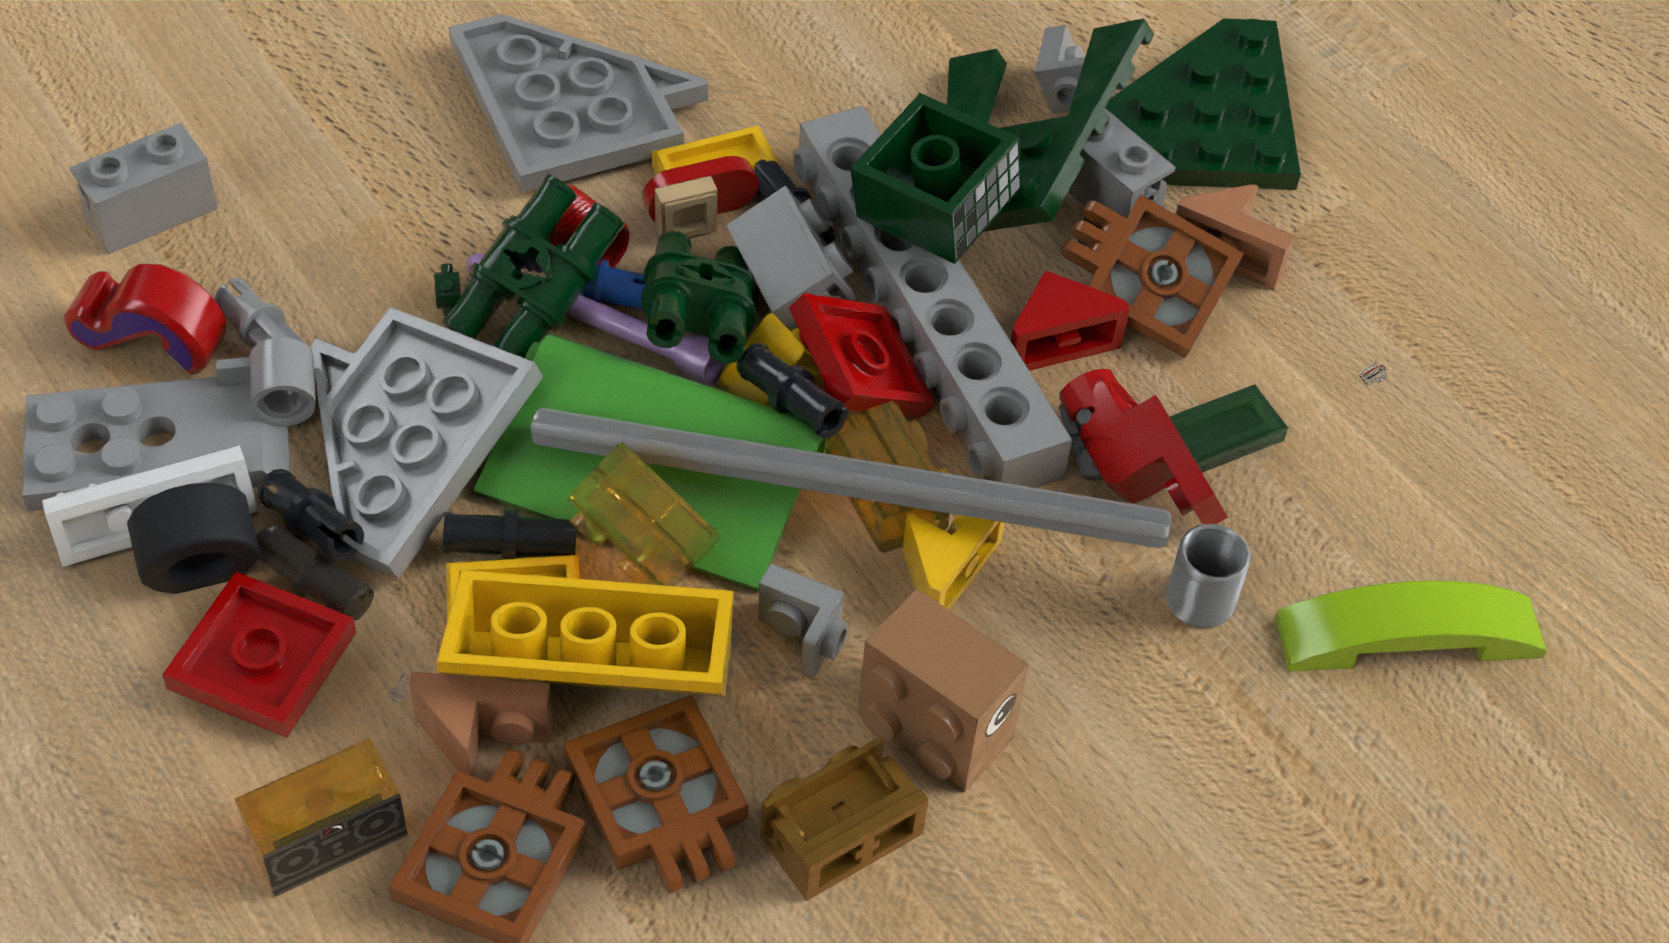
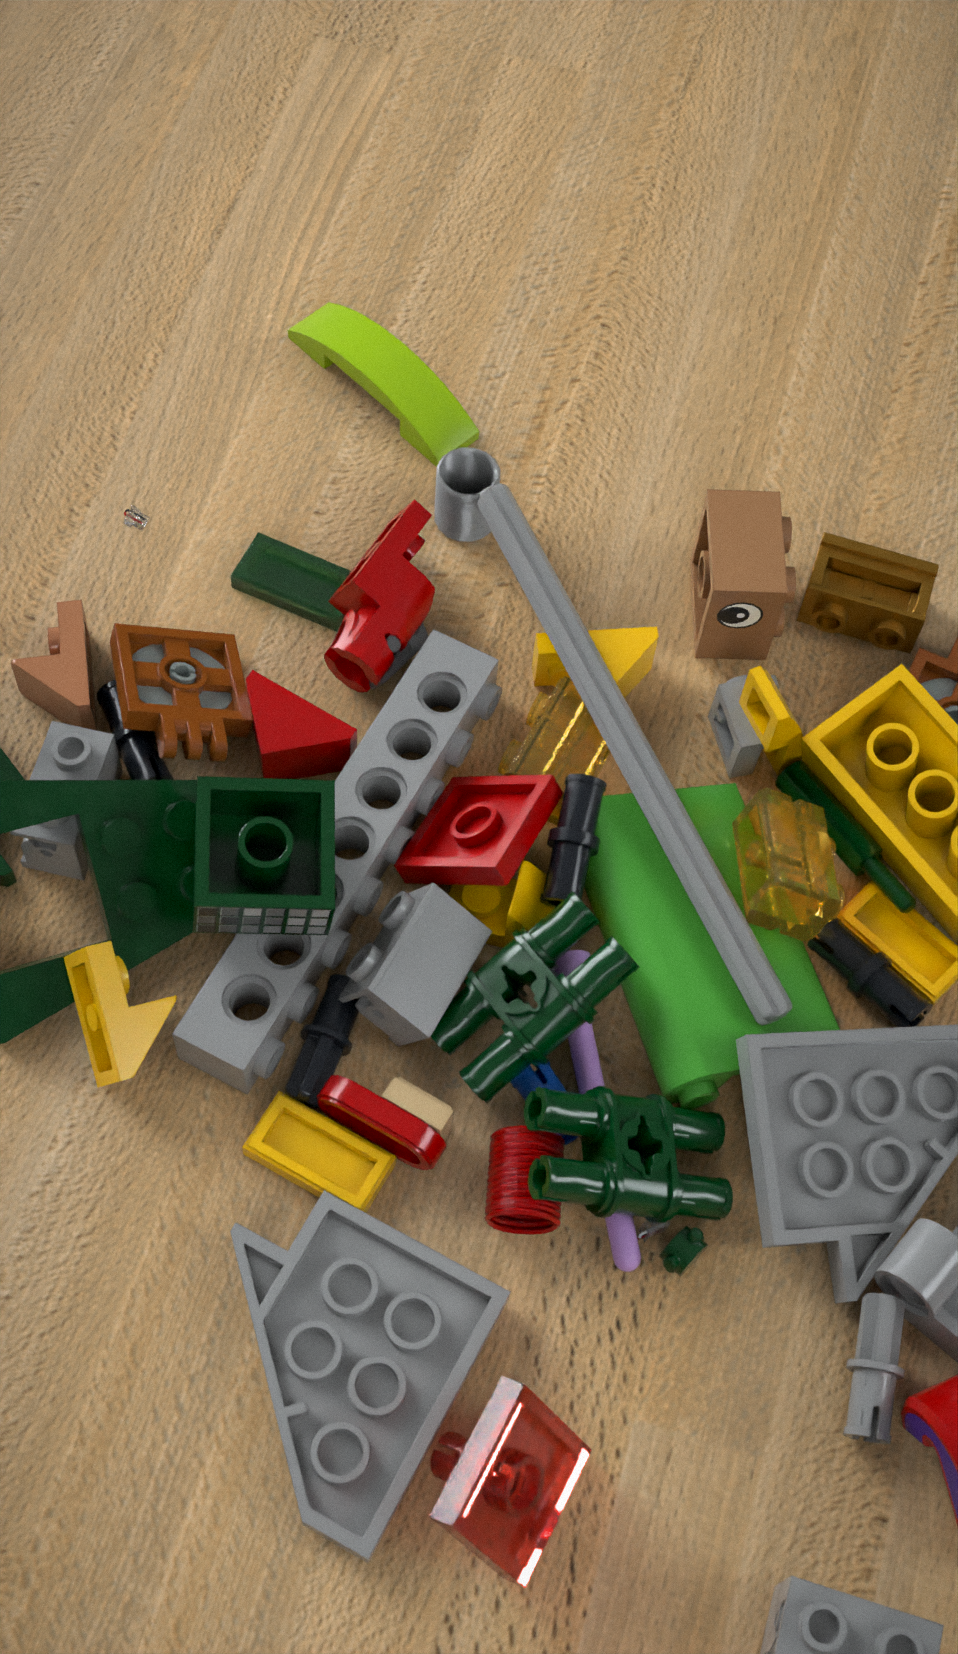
camera: 130 degrees left, 10 degrees up
(413, 93) = (508, 1480): none -> clear red tile
(773, 605) = (771, 719): none -> yellow slope
(895, 89) = (113, 1031): none -> yellow slope

